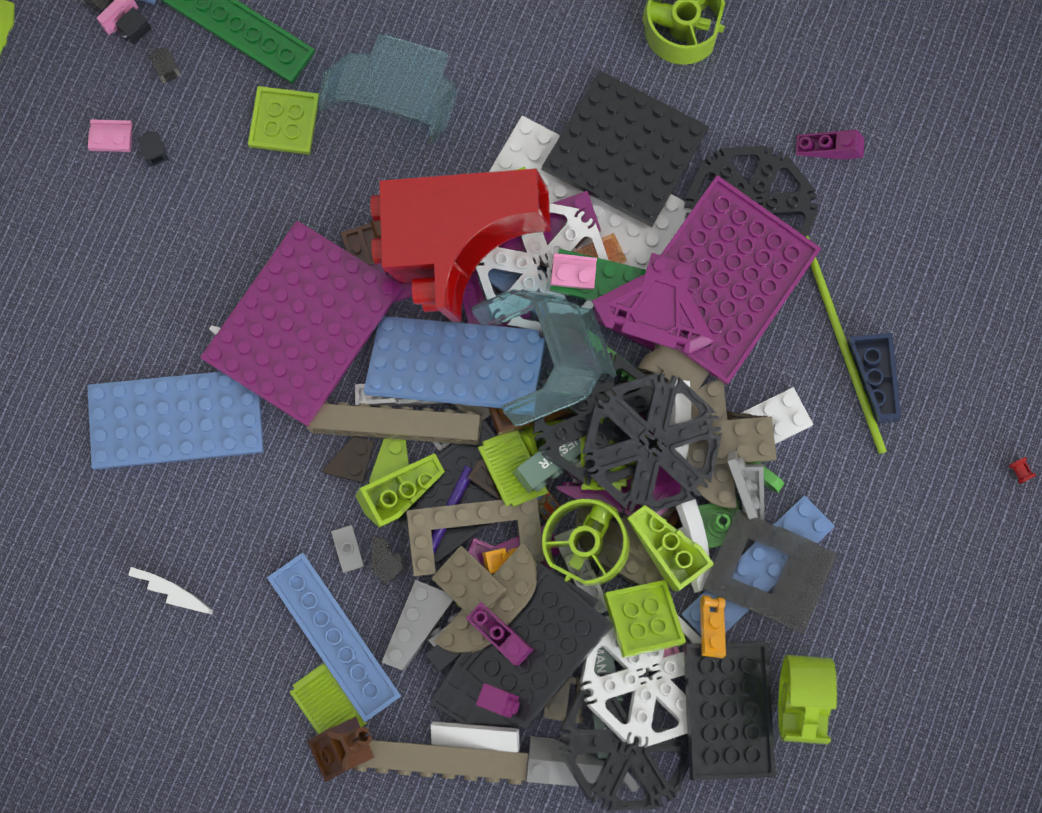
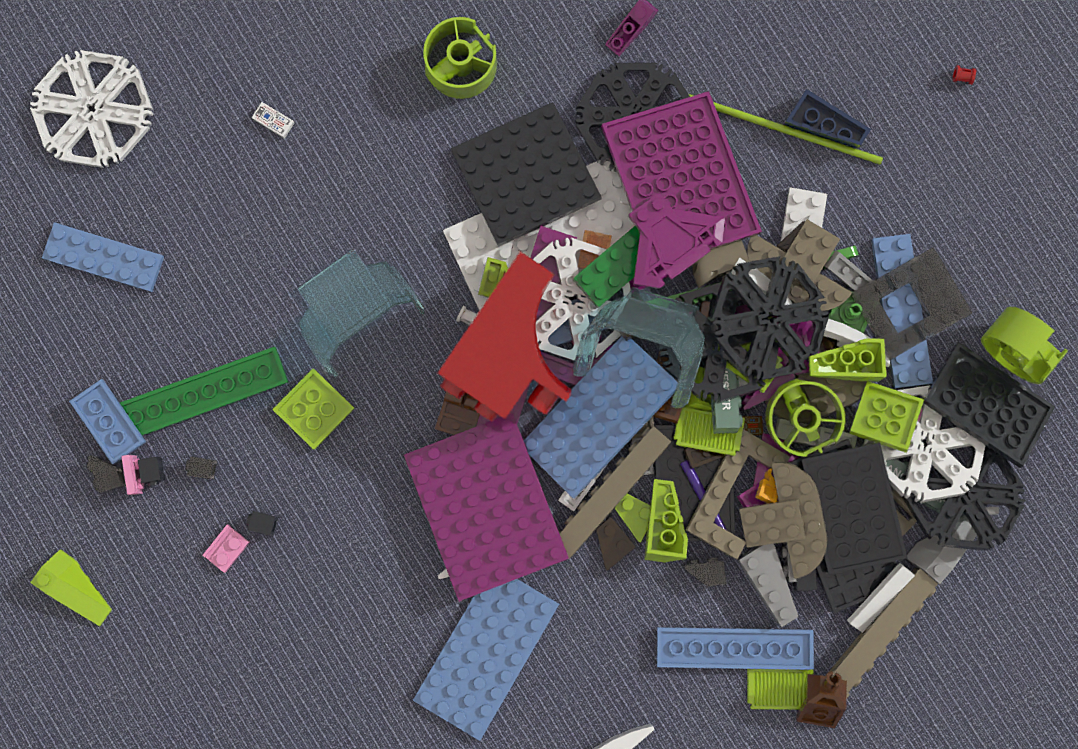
camera: 60 degrees left, 5 degrees up
(347, 549) = (676, 592): light grey plate -> none
(498, 701) = (878, 563): magenta brick -> none
(499, 634) = (830, 528): magenta slope -> none
(573, 271) = (599, 280): bright pink plate -> none
(712, 627) = (924, 372): light orange plate -> none
(743, 484) = (842, 275): light grey plate -> none

